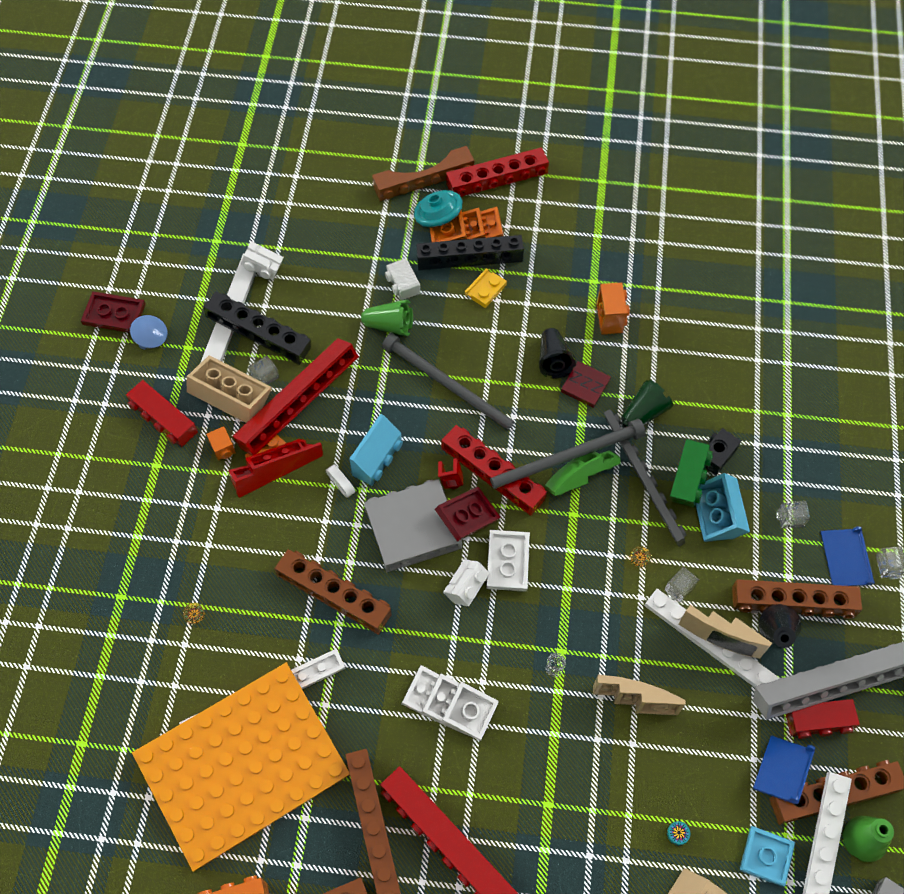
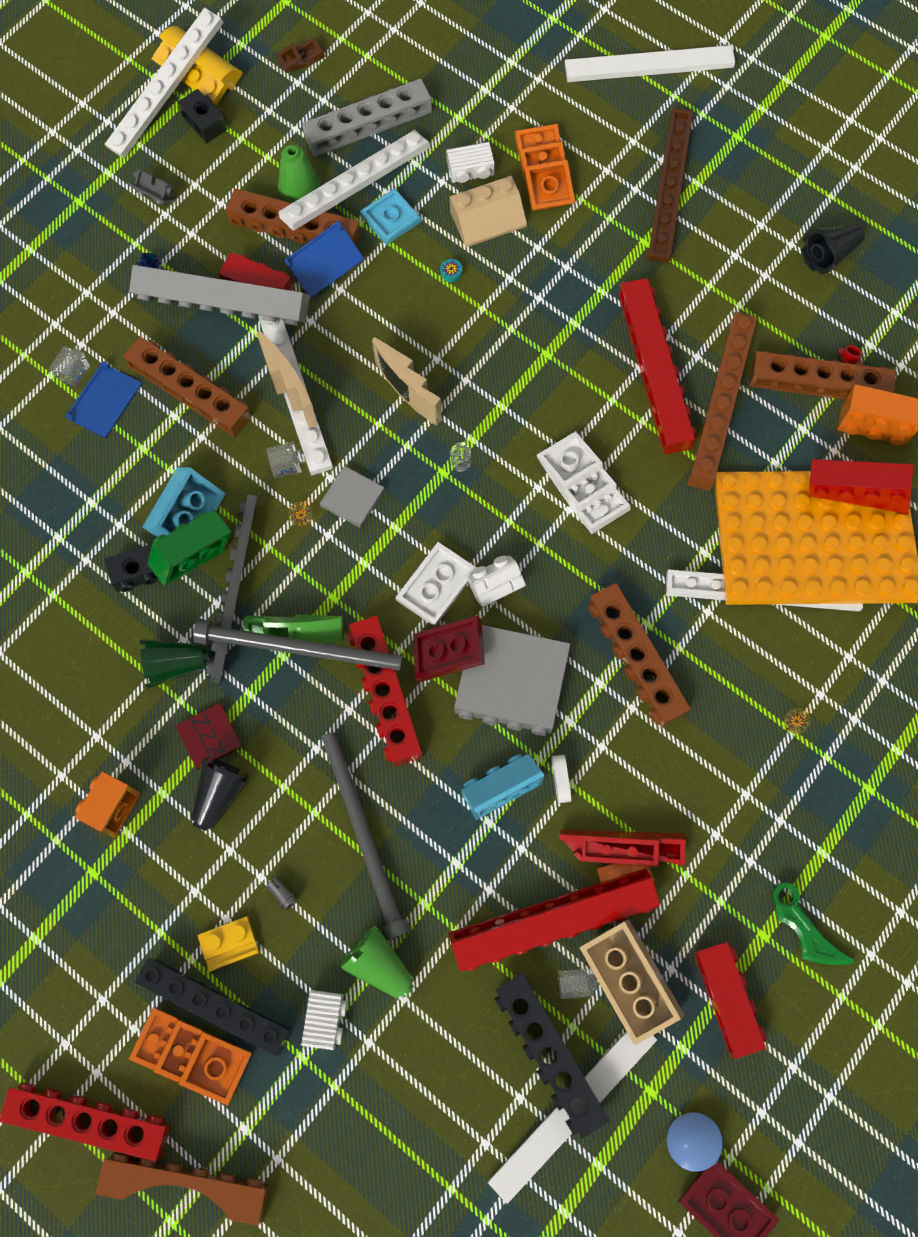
camera: 145 degrees left, 10 degrees up
(120, 476) = (813, 944): none -> green piece
(221, 443) = (675, 910): orange brick -> none
(222, 817) = (863, 483): none -> red wedge
(261, 261) = (491, 1166): white brick -> none
(438, 208) = (205, 1107): teal piece -> none
(451, 479) = (437, 707): red window -> none
(473, 326) = (282, 893): none -> flat silver pin
(613, 590) = (352, 497): none -> light grey tile
(780, 625) = (229, 358): black cone -> none
(793, 514) = (118, 462): clear brick -> none

